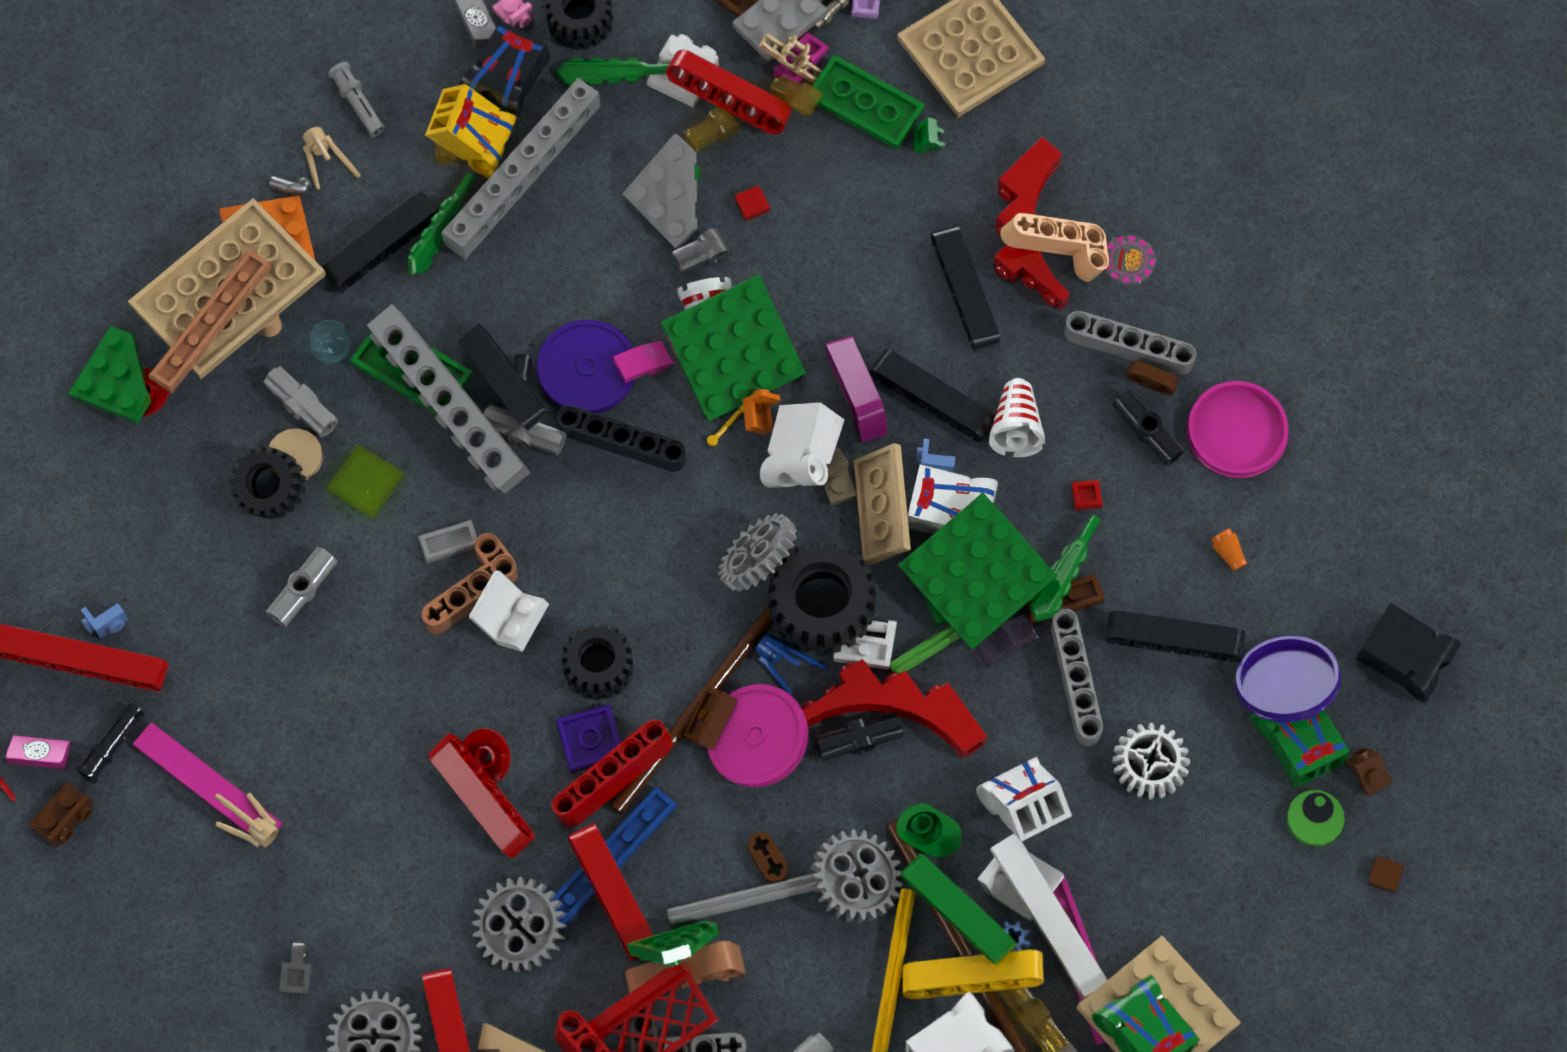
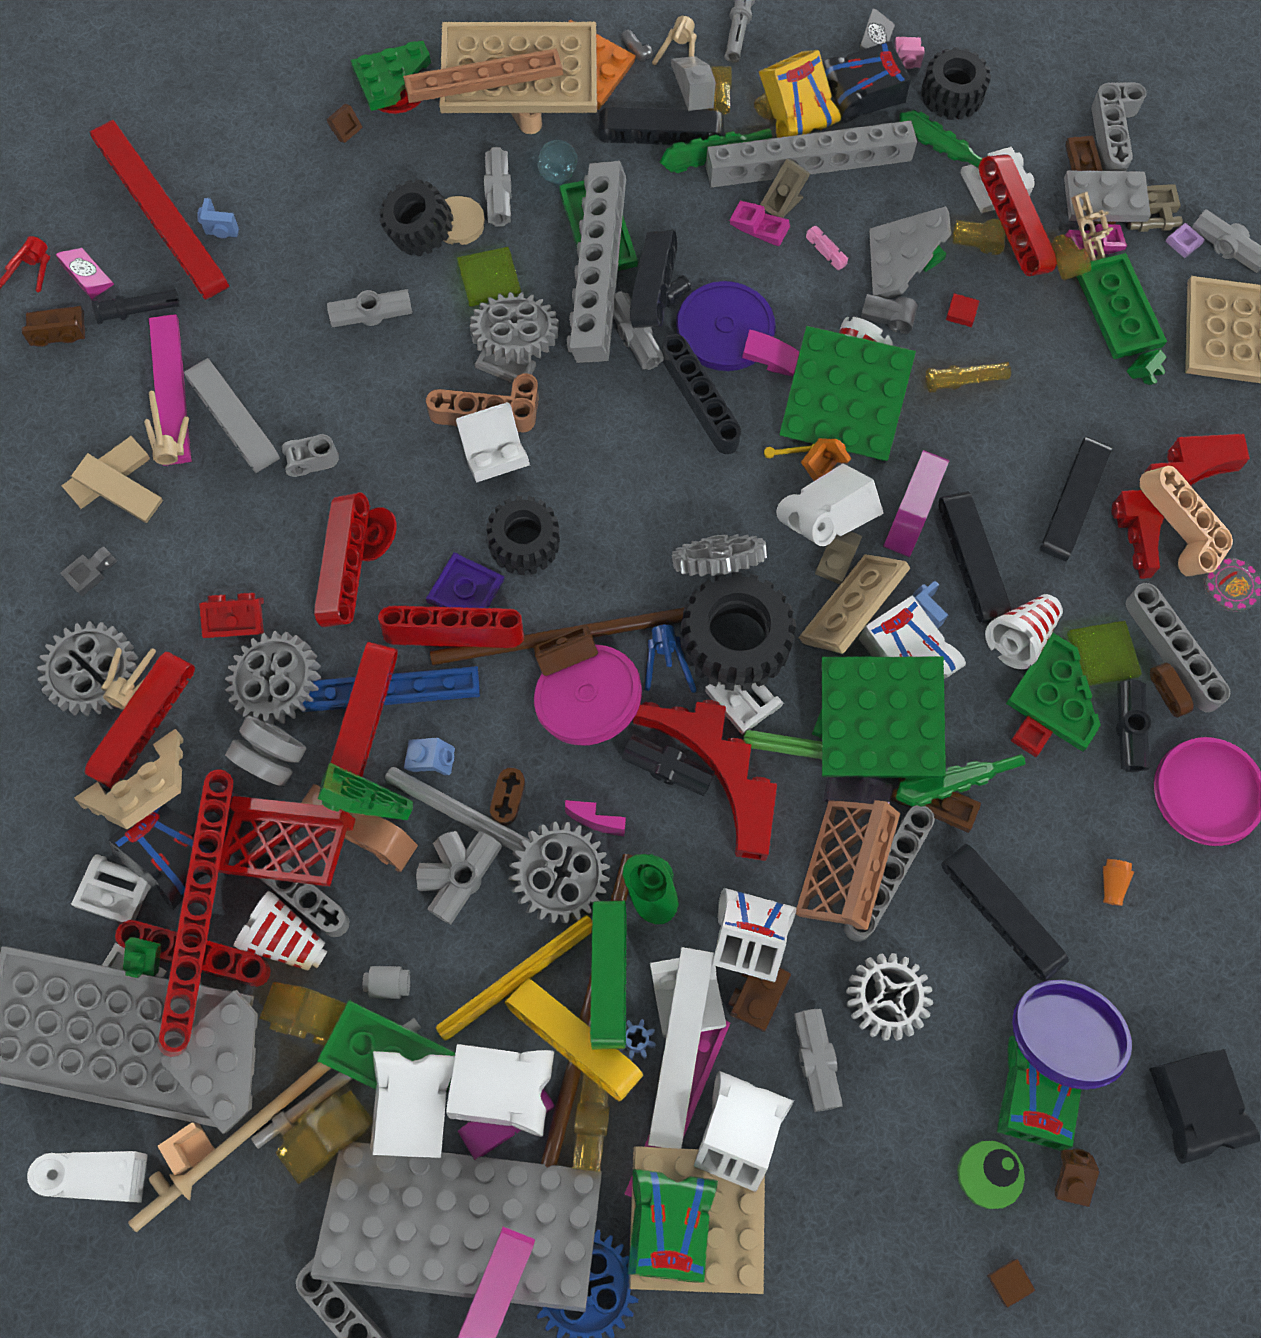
camera: 40 degrees right, 0 degrees up
(121, 452) = (344, 123): none -> reddish brown tile
(227, 889) = (122, 458): none -> tan tile
(253, 892) = (117, 488): none -> tan tile
(280, 760) = (232, 415): none -> light grey beam
(372, 742) = (307, 455): none -> light grey piece
(374, 181) = (695, 82): none -> light grey slope
(392, 167) = (723, 83): none -> clear yellow piece
(423, 1028) = (121, 691): none -> tan plant
(430, 506) = (514, 327): none -> light grey gear
(440, 907) = (231, 616): none -> red bracket
(530, 216) = (785, 189): none -> dark tan slope
(534, 260) = (753, 221): none -> dark pink slope
(572, 970) = (265, 751): none -> light grey wheel
(604, 237) = (827, 247): none -> bright pink axle
(685, 879) = (429, 755): none -> medium blue bracket
(776, 933) = (455, 861): none -> light grey piece
(796, 264) = (955, 376): none -> clear yellow pin
(838, 821) = (586, 815): none -> dark pink slope
(1064, 686) = (867, 864): none -> nougat fence
(1066, 842) = (758, 999): none -> reddish brown bracket
(1078, 448) = (1058, 694): none -> green plate
(1084, 390) = (1106, 652): none -> clear neon green tile
(1135, 933) = (741, 1131): none -> white piece
(1142, 844) = (818, 1060): none -> light grey piece

